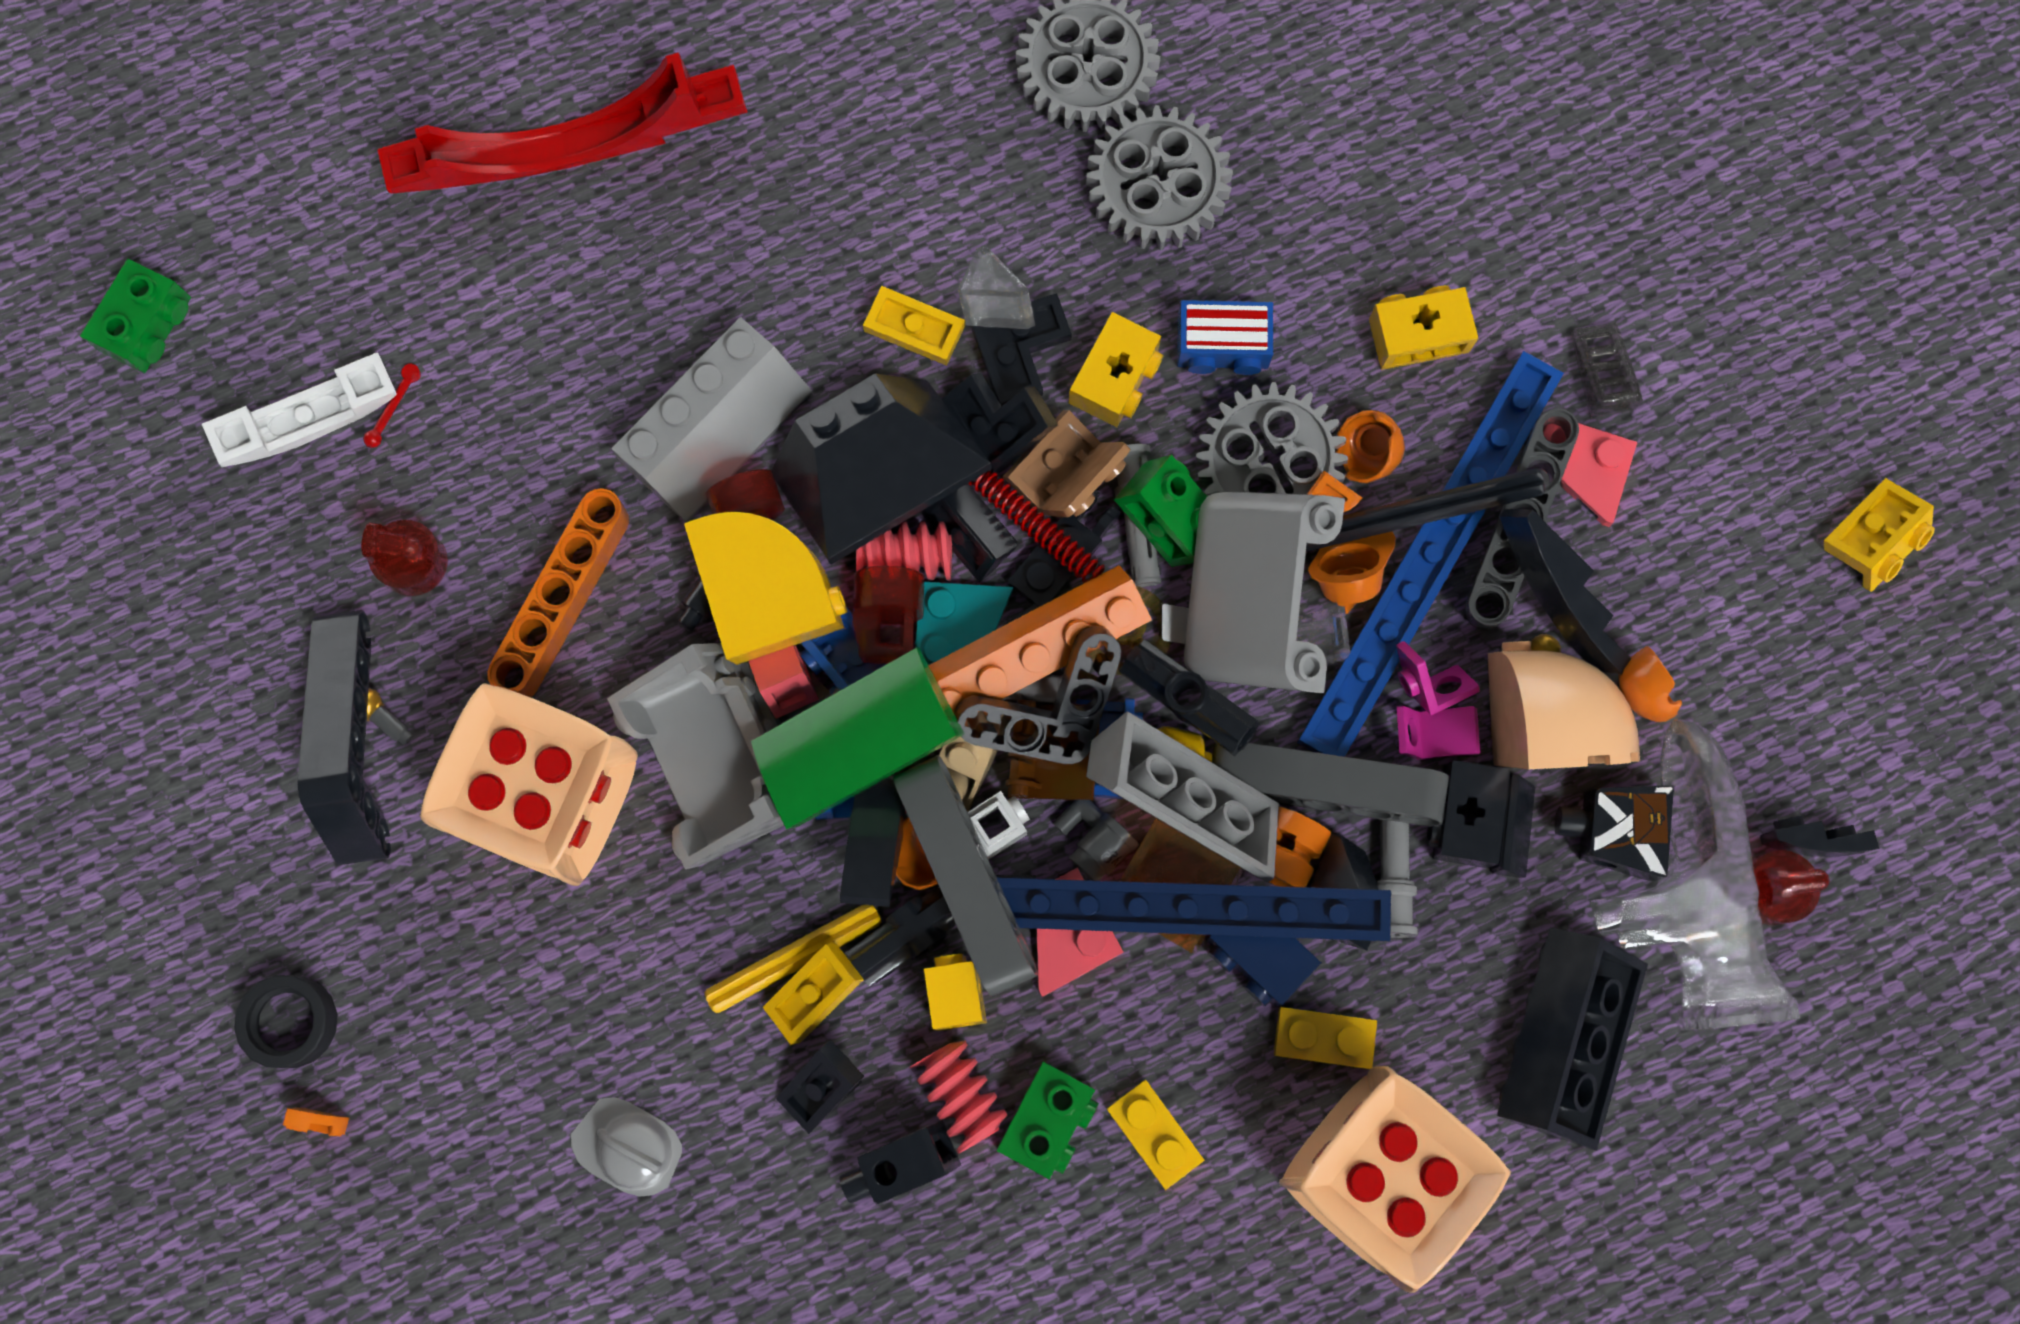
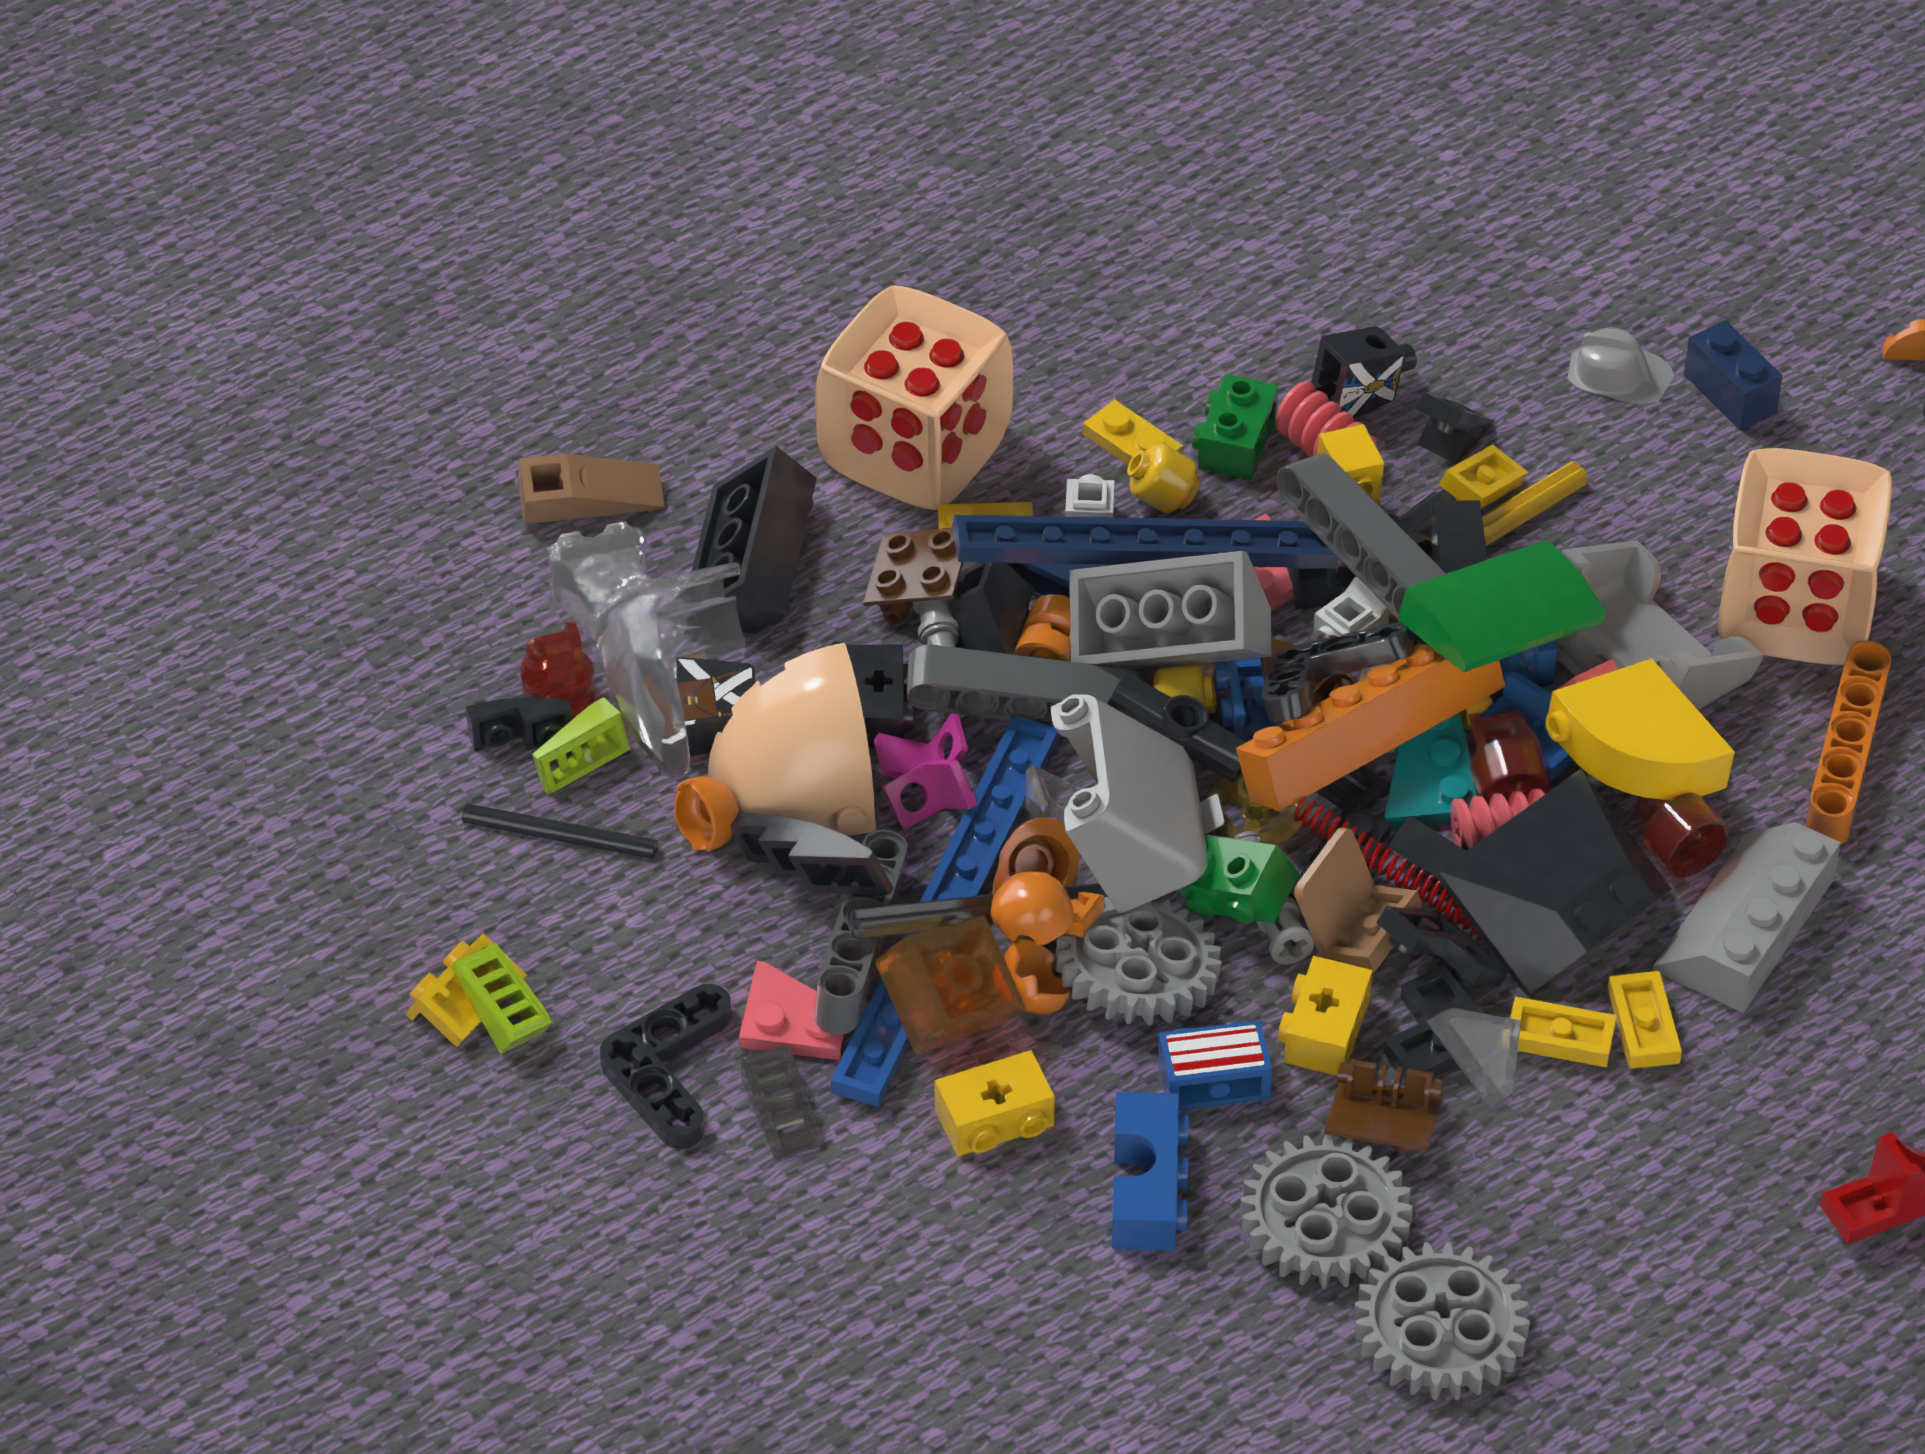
camera: 170 degrees right, 30 degrees down
(515, 1096) = (1732, 375): none -> dark blue brick
(837, 326) = (1644, 1020): none -> yellow plate
(1088, 261) = (1383, 1111): none -> reddish brown hinge
(1139, 1050) = (1163, 478): none -> yellow head
(1226, 1008) = (1089, 497): none -> white window
(1308, 201) = (1147, 1204): none -> blue arch
(1371, 483) = (1033, 907): none -> orange hair
(1413, 968) = (913, 569): none -> reddish brown hinge
(1454, 425) = (950, 984): none -> clear orange brick
(1716, 443) = (651, 1053): none -> black beam
(1738, 1146) = (586, 487): none -> medium nougat slope
(1772, 793) = (605, 739): none -> lime slope
(1782, 715) = (559, 831): none -> black bar
(1837, 479) = (495, 1020): none -> lime slope

